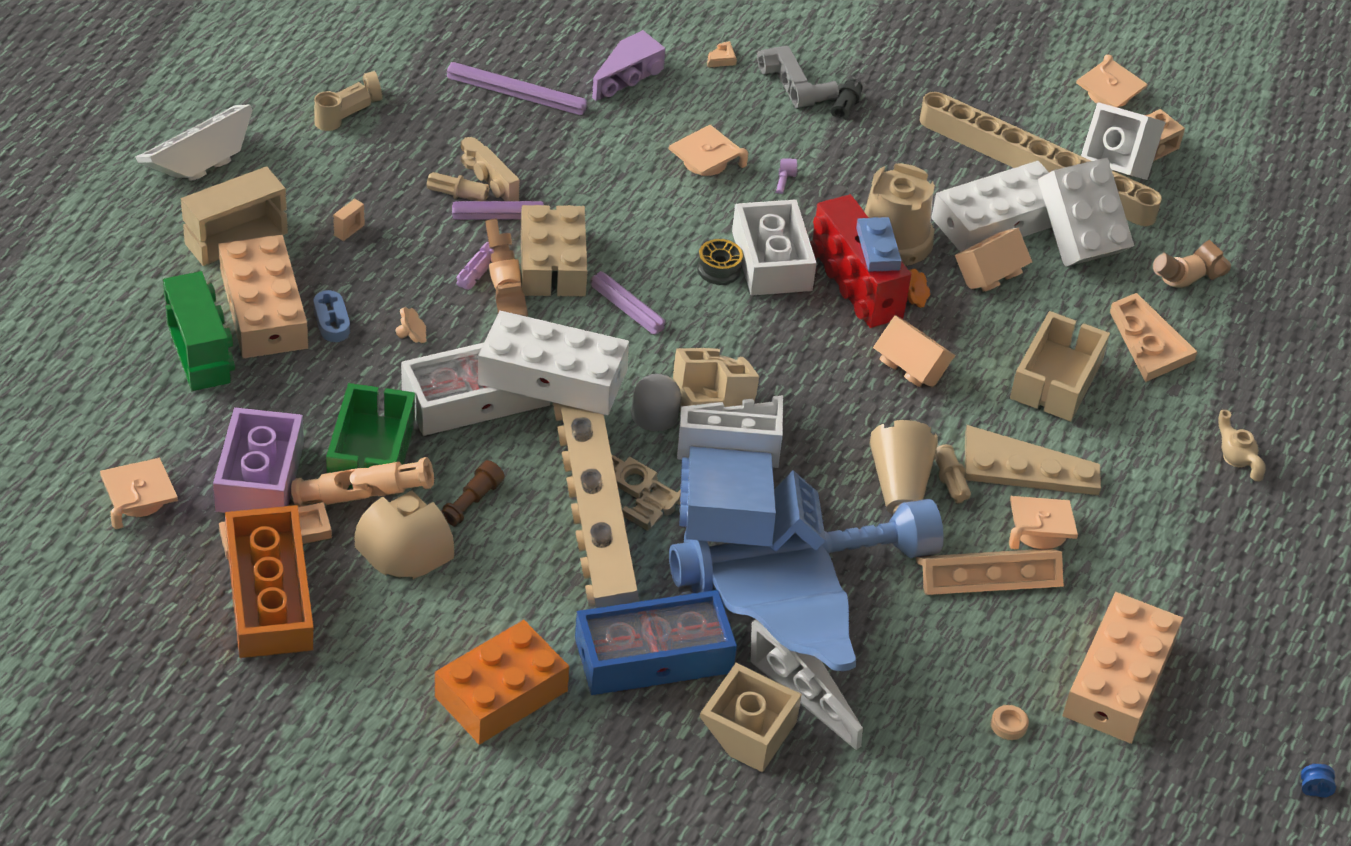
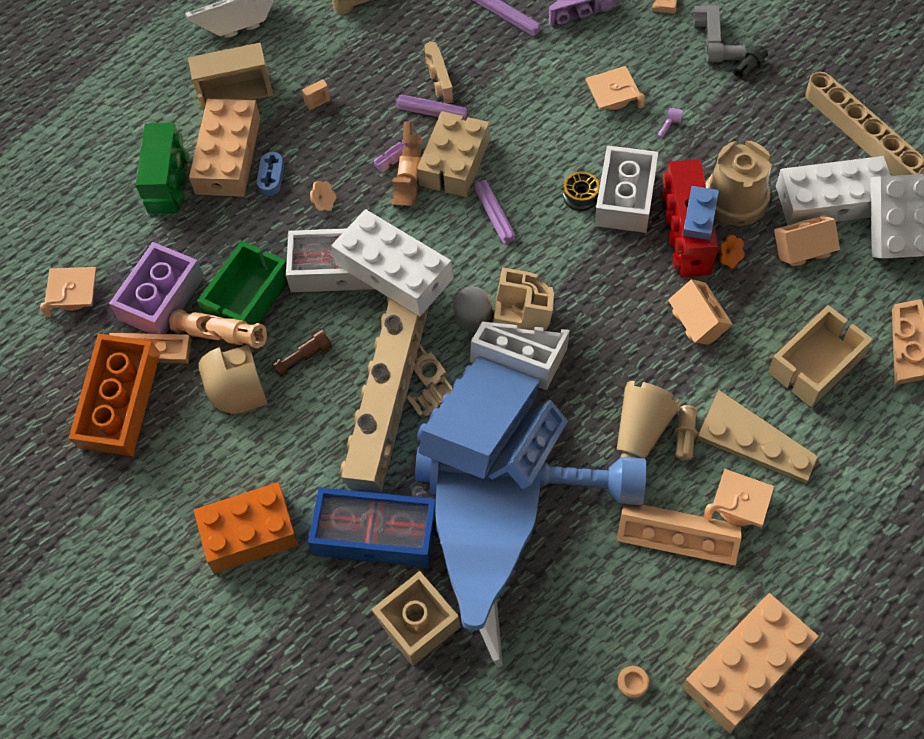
camera: 30 degrees right, 15 degrees up
(458, 187) = (410, 82): tan axle -> none

